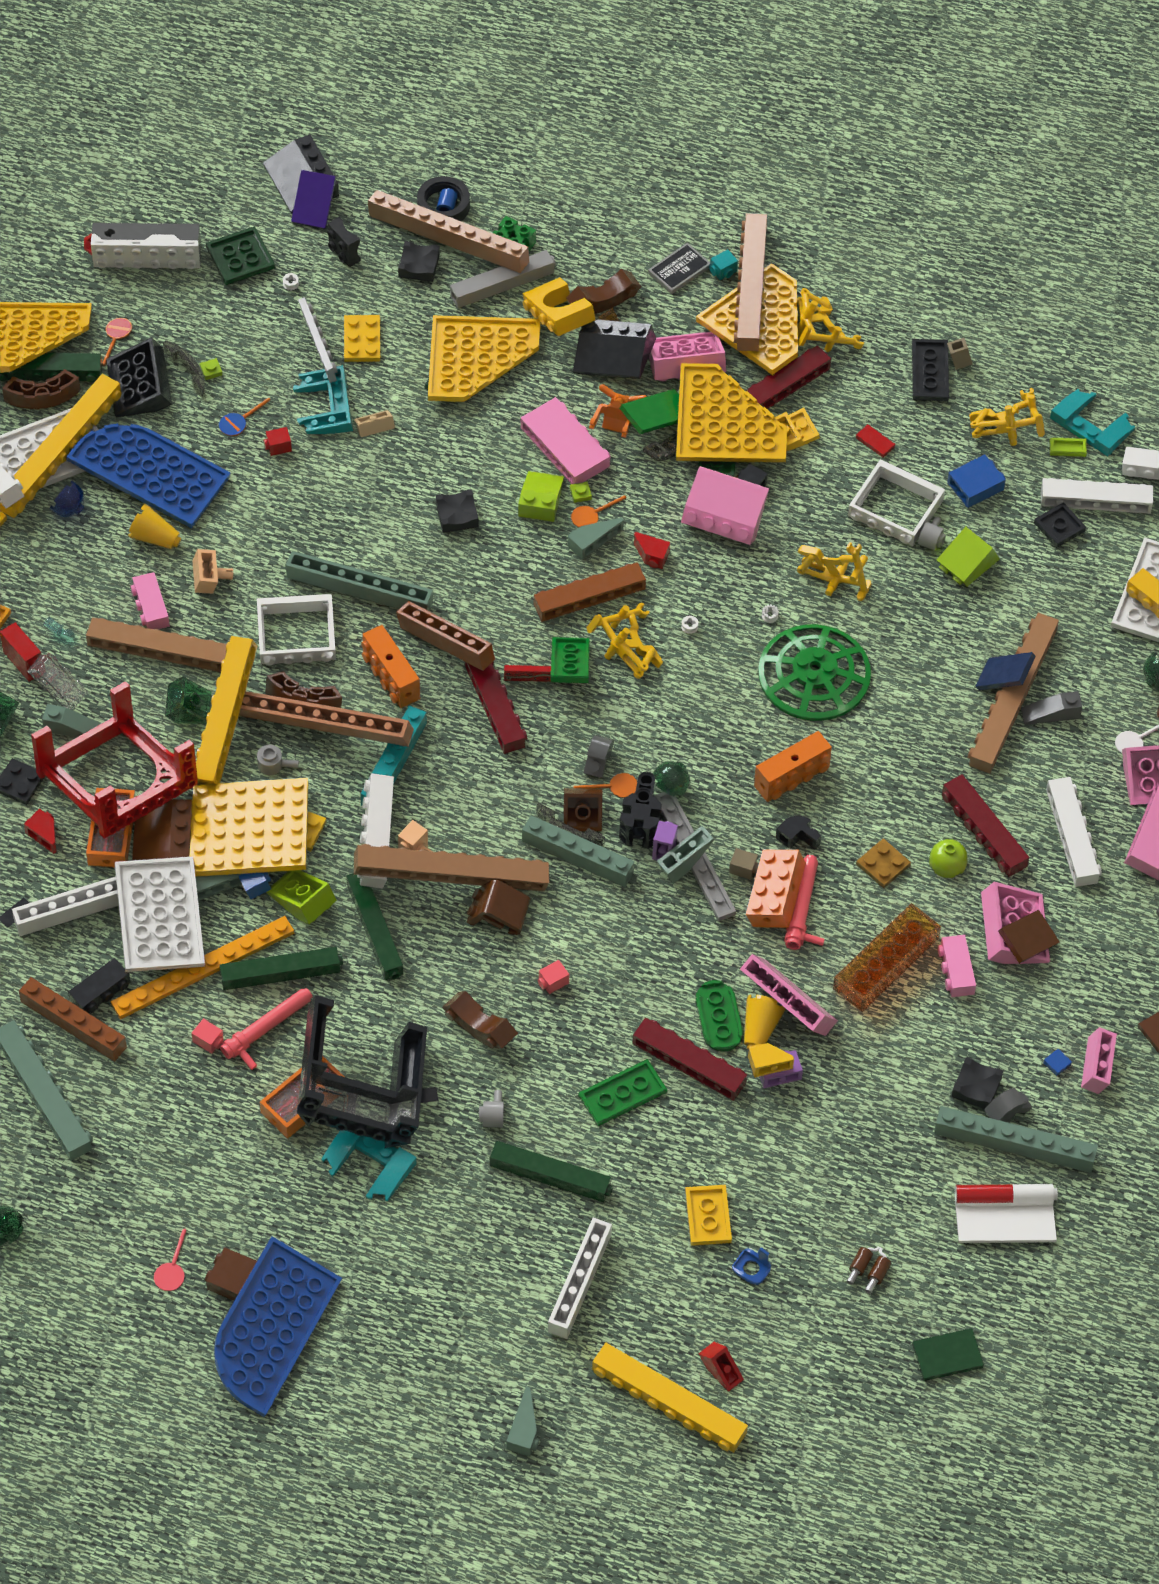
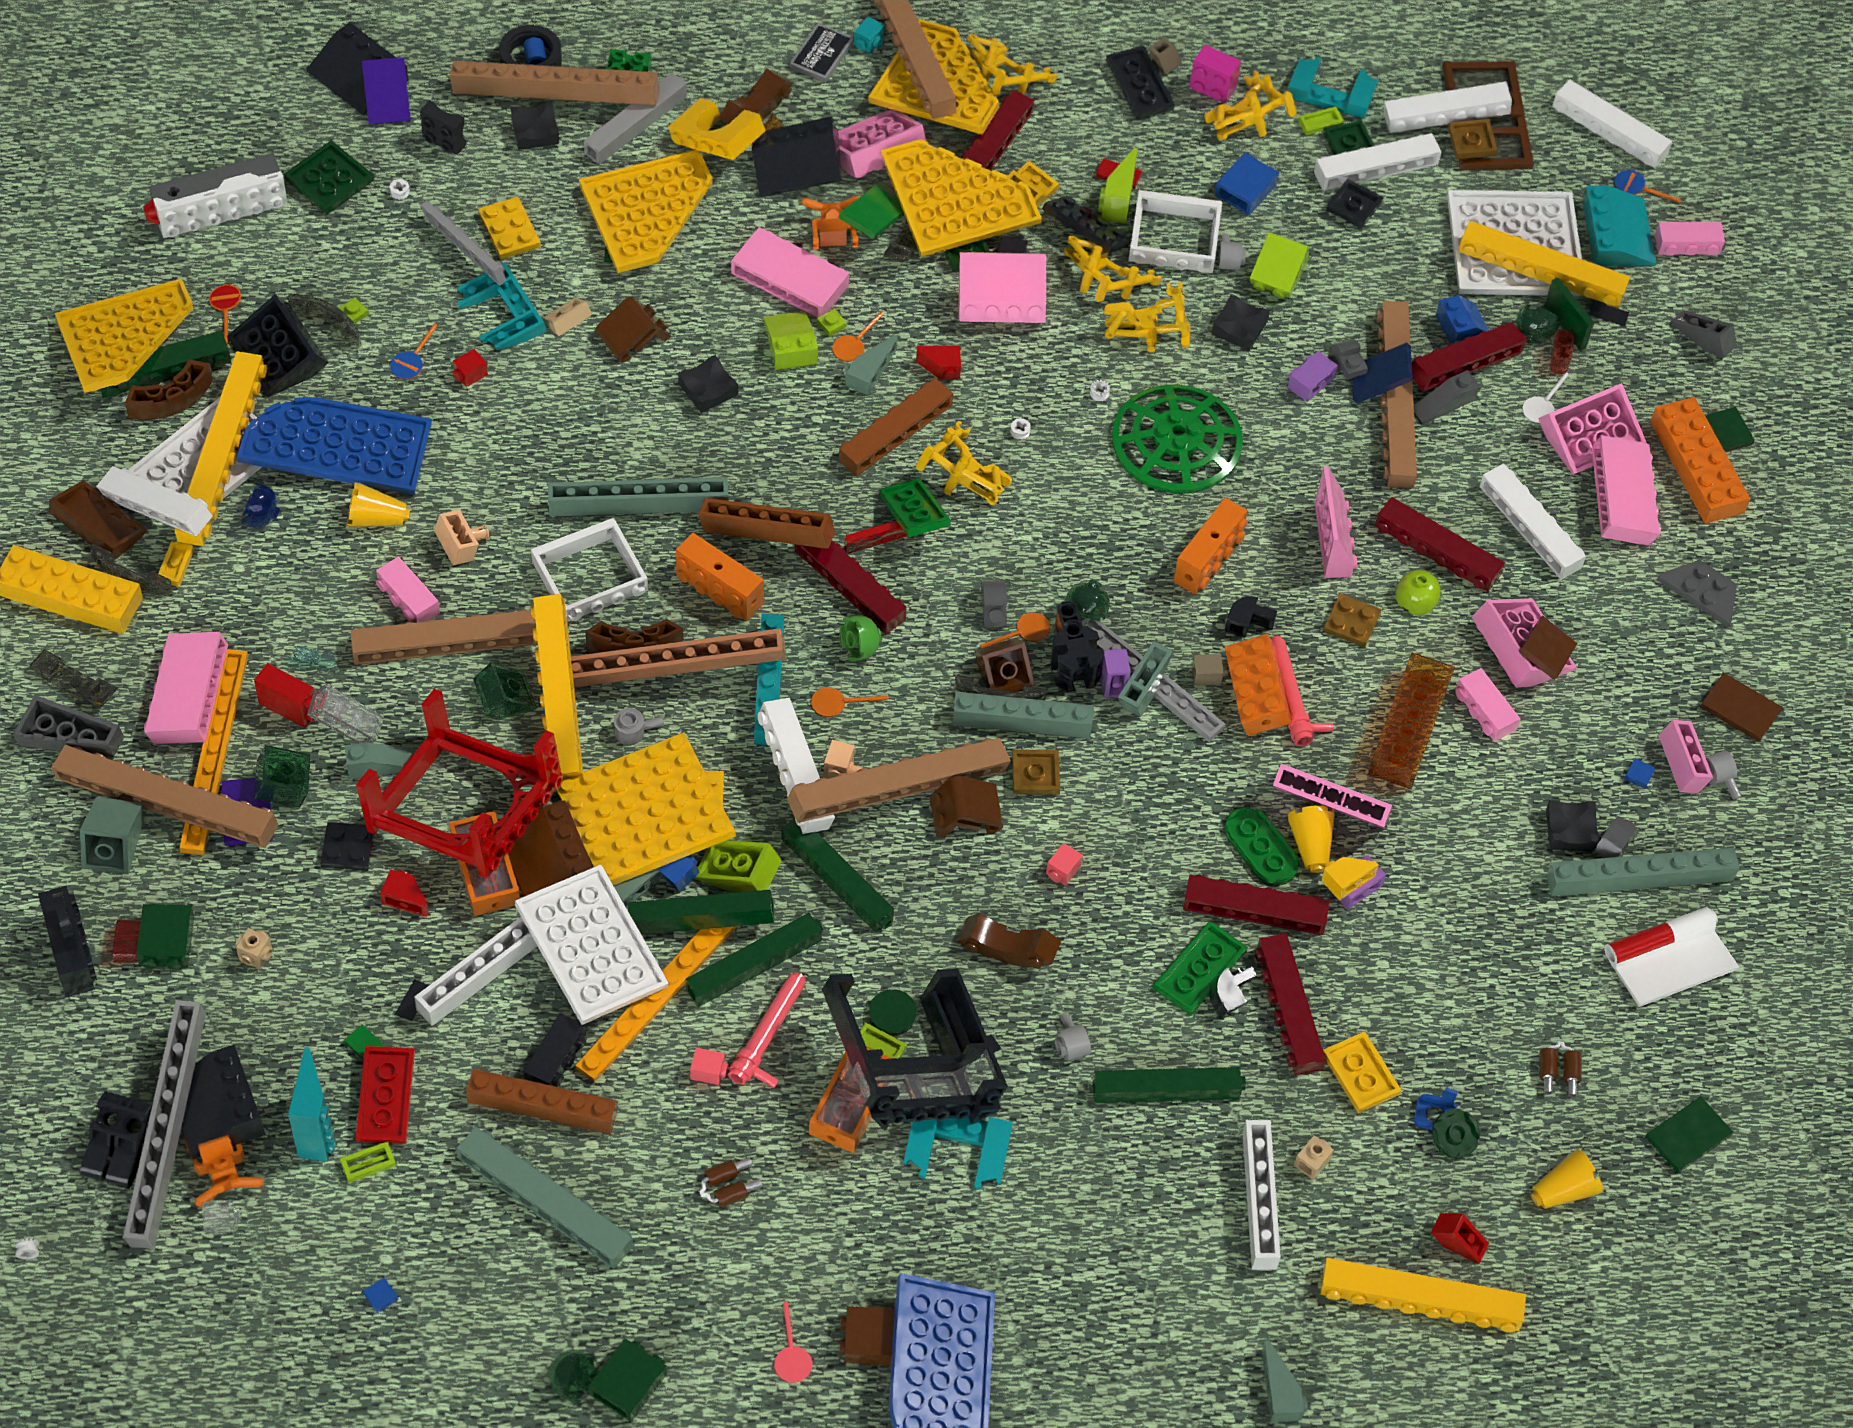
camera: 25 degrees left, 0 degrees up
(41, 1243) = (628, 1379): none -> dark green brick
(182, 1118) = (730, 1193): none -> reddish brown piece
(255, 918) = (702, 912): none -> dark green brick
(346, 1063) = (878, 1039): none -> lime tile
(367, 1044) = (892, 1012): none -> dark green tile
(418, 446) = (630, 326): none -> reddish brown piece
(435, 791) = (831, 702): none -> orange piece
(480, 748) = (861, 633): none -> bright green cylinder
(567, 898) = (1036, 772): none -> pearl gold plate
(629, 1116) = (1225, 990): none -> brick
(637, 1265) = (1314, 1157): none -> tan brick
(678, 1143) = (1290, 1004): none -> dark red brick
(758, 1287) = (1455, 1133): none -> dark green tile
(808, 510) = (1093, 262): none -> yellow piece
(824, 474) = (1087, 224): none -> black plate
(825, 1354) = (1567, 1182): none -> yellow cone
(864, 453) = (1117, 193): none -> lime slope
(902, 783) = (1334, 528): none -> bright pink slope
(912, 594) = (1240, 322): none -> black brick
(950, 656) = (1312, 376): none -> medium lavender brick
(984, 651) = (1348, 358): none -> dark grey brick
(993, 381) = (1215, 74): none -> dark pink brick
(1084, 468) = (1348, 137): none -> dark green tile
(1086, 679) = (1470, 355): none -> dark red brick
(1101, 649) = (1459, 318): none -> blue slope
(1124, 1081) = (1724, 770): none -> light grey piece

